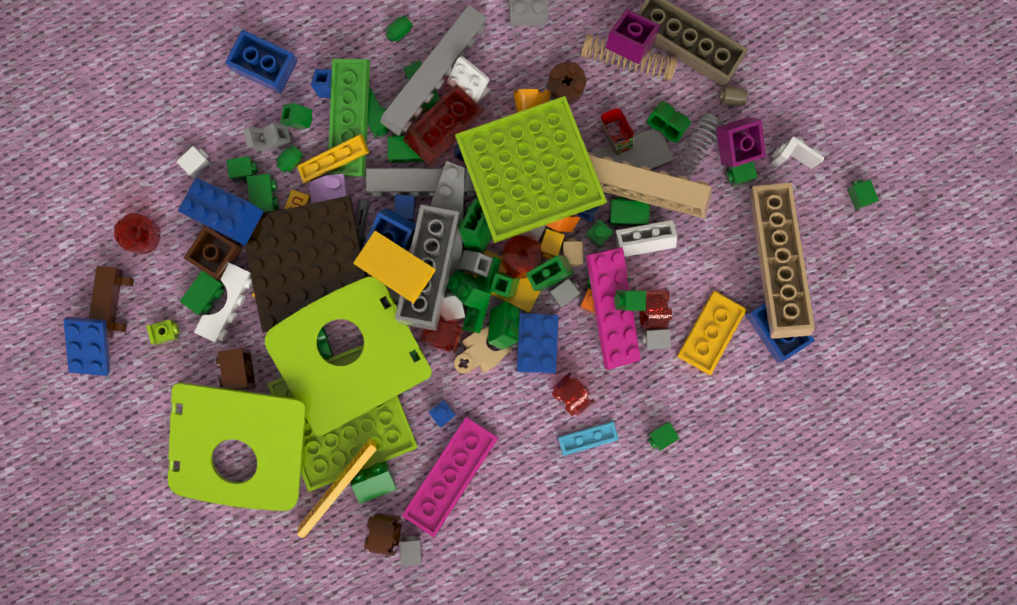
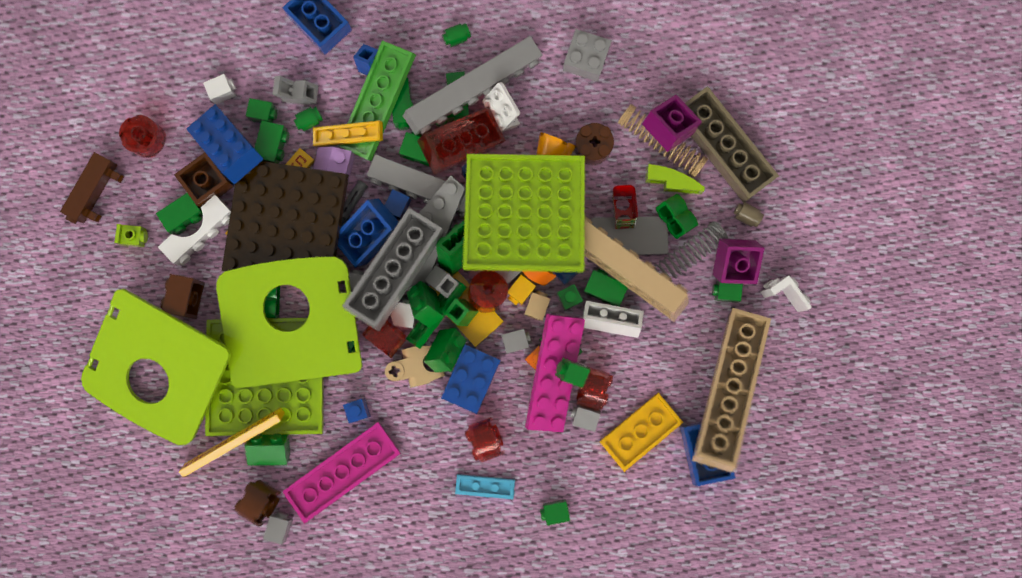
camera: 30 degrees right, 0 degrees up
(86, 346) = (56, 222): blue plate -> none
(296, 116) = (330, 81): green brick -> none
(394, 266) = (361, 257): yellow tile -> none
(550, 273) = (507, 317): green brick -> none
(651, 90) = (673, 180): none -> lime slope
(862, 194) = (837, 354): green brick -> none

